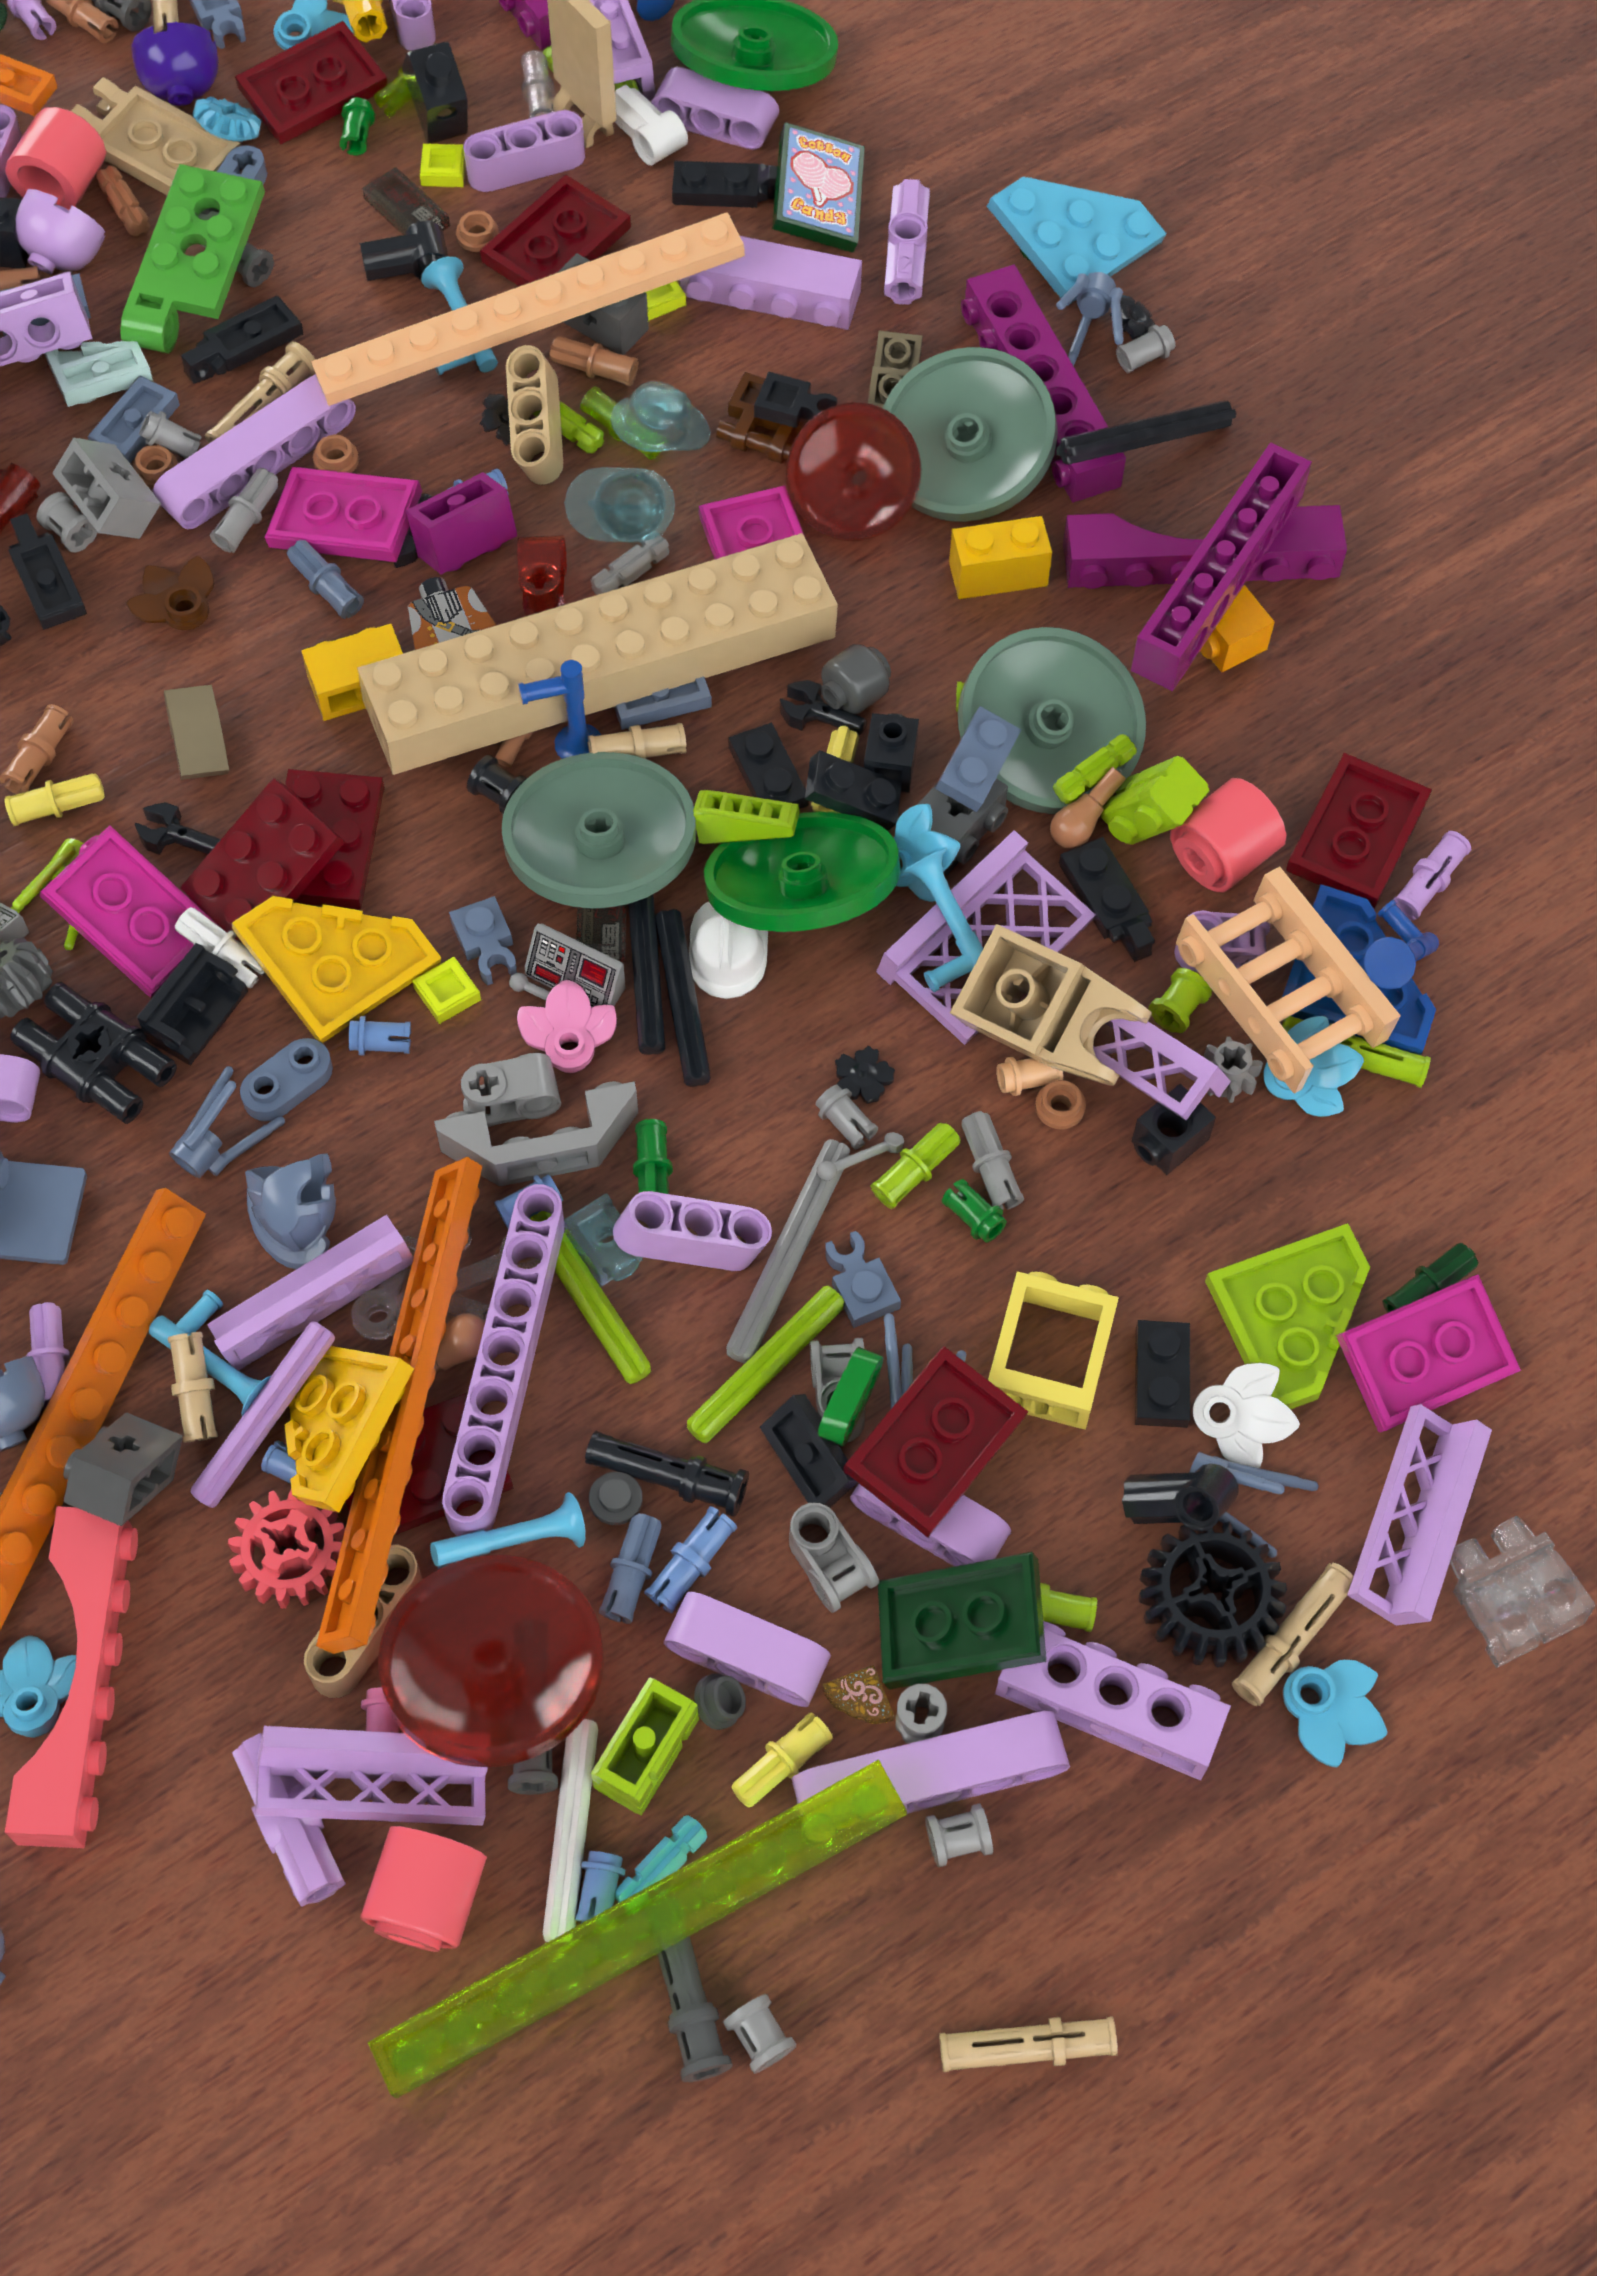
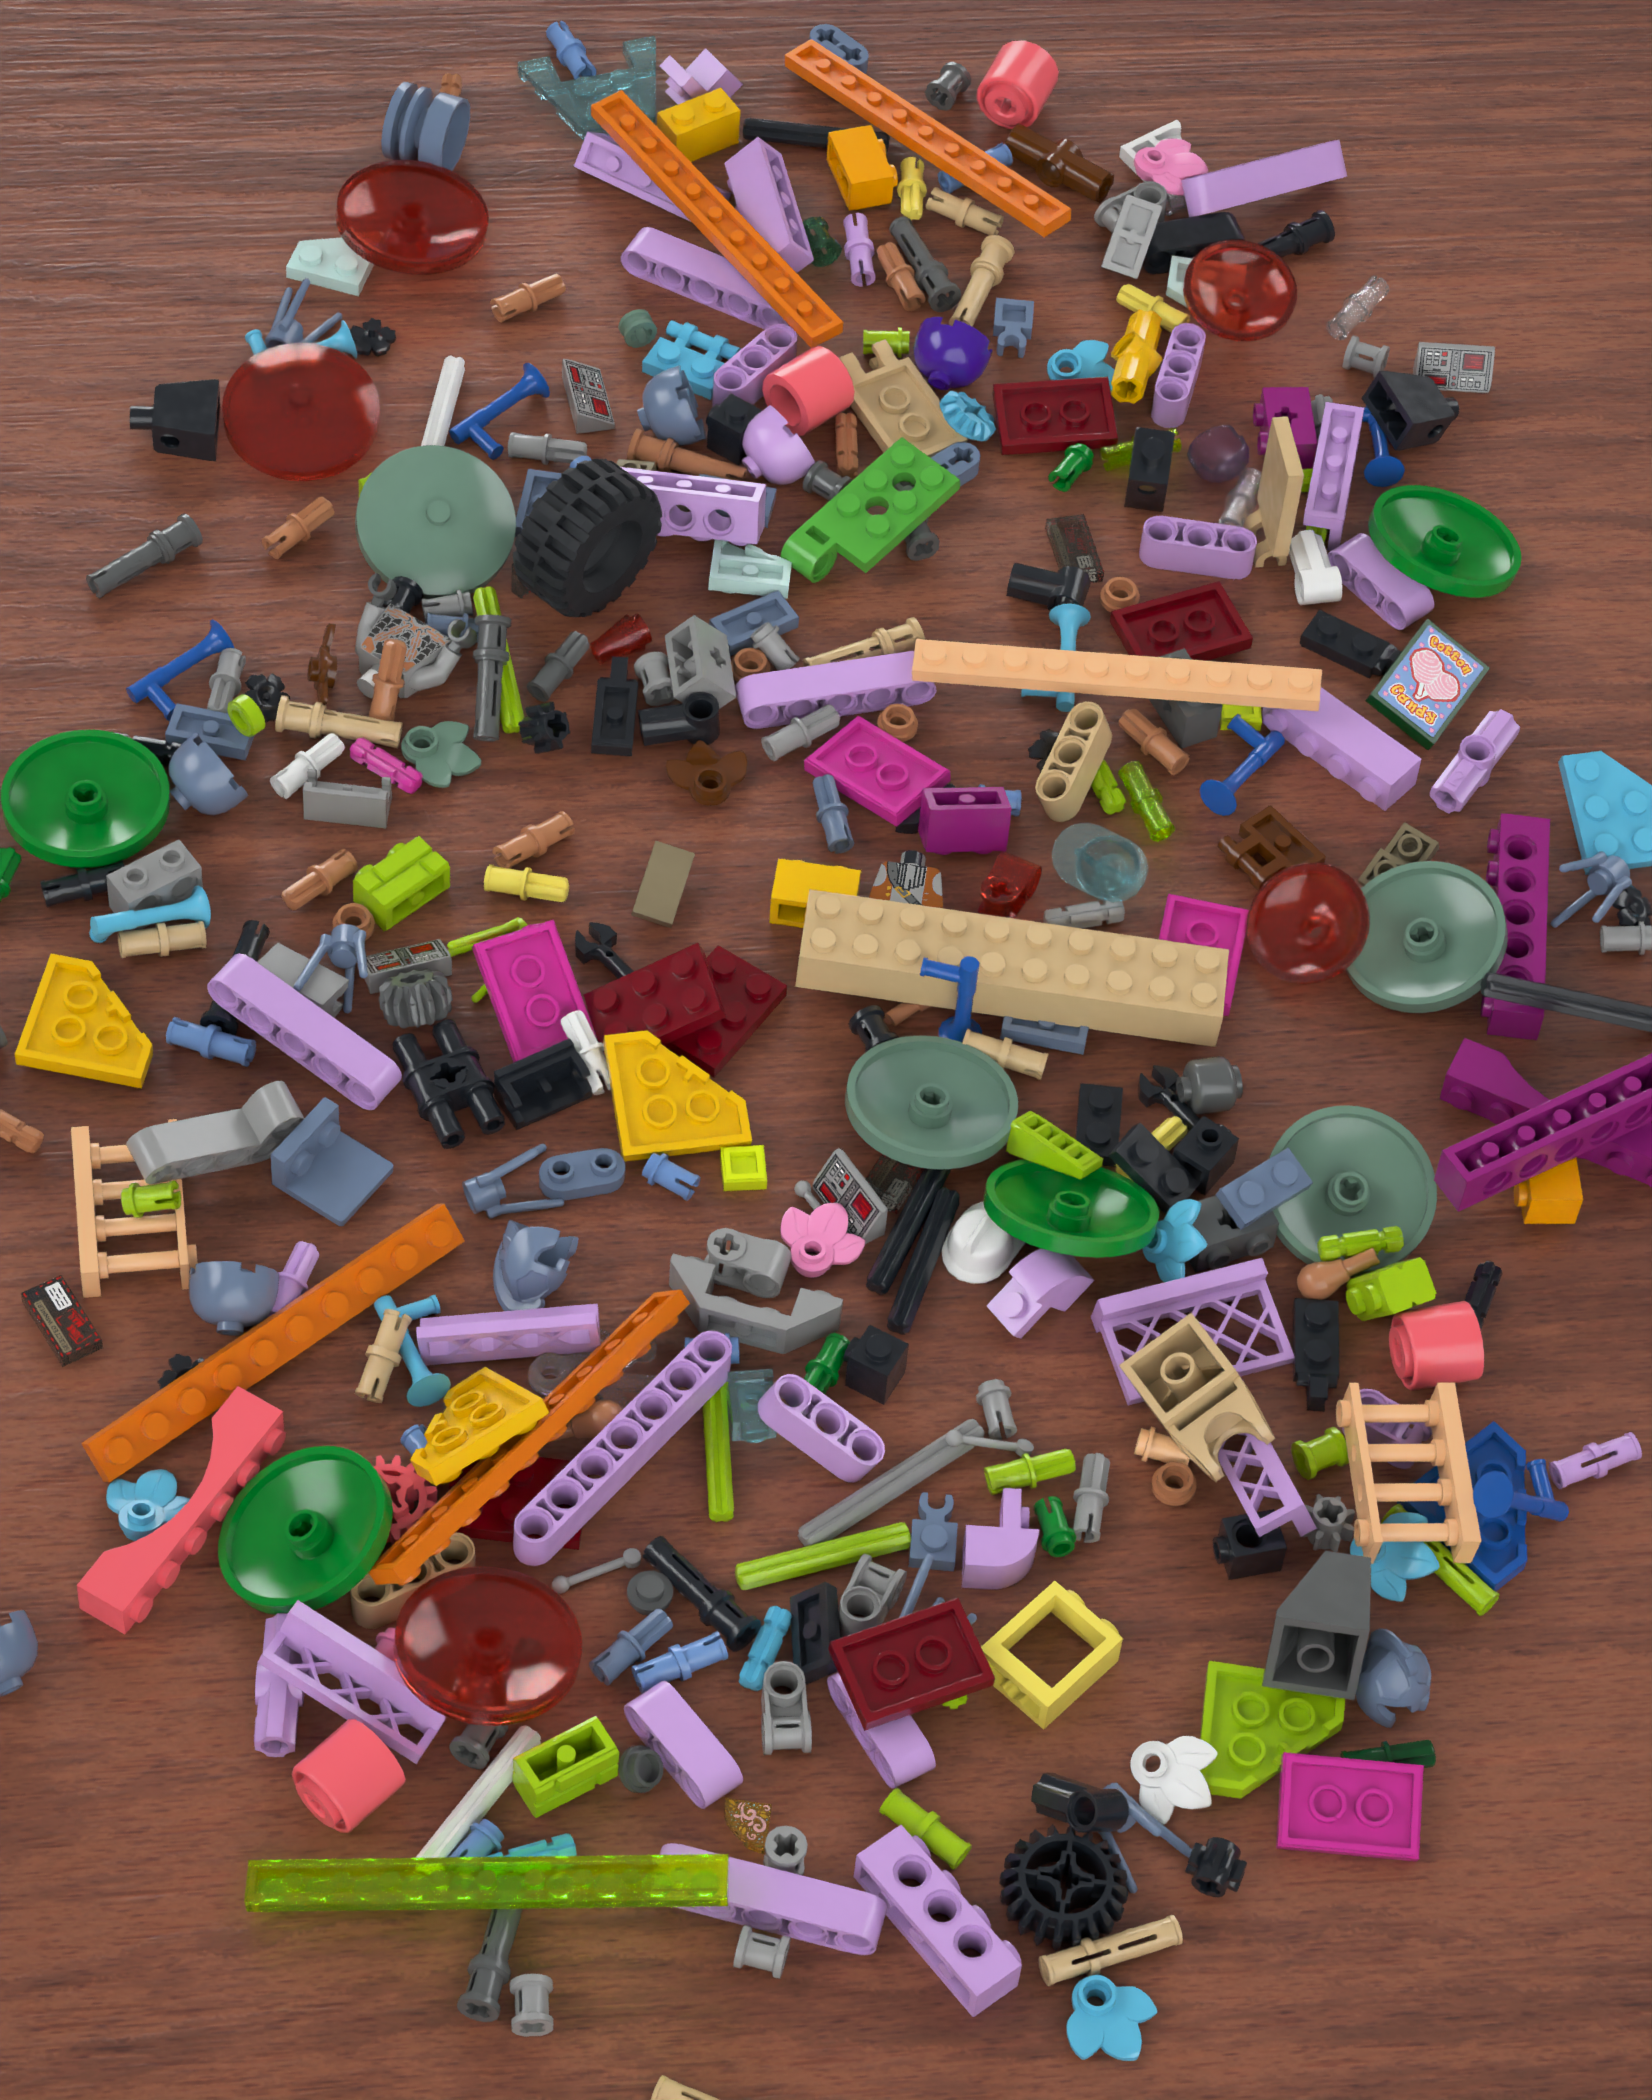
camera: 25 degrees right, 10 degrees down
(115, 72) = (897, 340): none -> lime pin
(122, 1468) = (299, 1383): dark grey brick -> none
(124, 245) = (824, 481): none -> dark grey bush
(126, 550) = (691, 721): none -> black piece
(221, 1632) = (305, 1529): none -> green dish
(241, 339) = (876, 597): black hinge -> none
(262, 1414) = (423, 1399): lavender axle -> none
(442, 165) = (1123, 529): neon yellow tile -> none
(484, 935) = (796, 1142): sand blue plate -> none
(492, 51) = (1219, 454): none -> clear purple hair
(563, 1522) = (596, 1585): medium azure piece -> none
(572, 1470) = (630, 1559): none -> light grey hinge
(659, 419) = (1176, 811): clear light blue piece -> none
(692, 380) = (1220, 795): none -> blue piece
(701, 1131) = (875, 1363): none -> black brick
(766, 1495) = (765, 1647): none -> medium azure axle
(782, 1759) = (662, 1831): light yellow axle -> none
(789, 400) = (1288, 843): black plate -> none
(813, 970) = (1038, 1283): none -> lavender brick
(850, 1396) = (865, 1599): green beam -> none
(864, 1074) = (1032, 1388): black plant -> none
(931, 873) = (1169, 1252): medium azure piece -> none
(942, 1267) = (1003, 1553): none -> lavender brick
(961, 1621) = (855, 1803): dark green tile -> none
(1000, 557) = (1390, 1046): yellow brick -> none
(1162, 1373) = (1128, 1718): black plate -> none
(1225, 760) = (1483, 1290): none -> black axle
(1315, 1183) = (1322, 1629): none -> dark grey slope
(1344, 1488) = (1216, 1867): none -> black gear
(1359, 829) = (1557, 1396): dark red plate -> none
(1388, 1198) = (1392, 1676): none -> sand blue helmet
(1432, 1527) = (1270, 1930): lavender fence -> none
(1519, 1594) = (1306, 2000): clear hips -> none

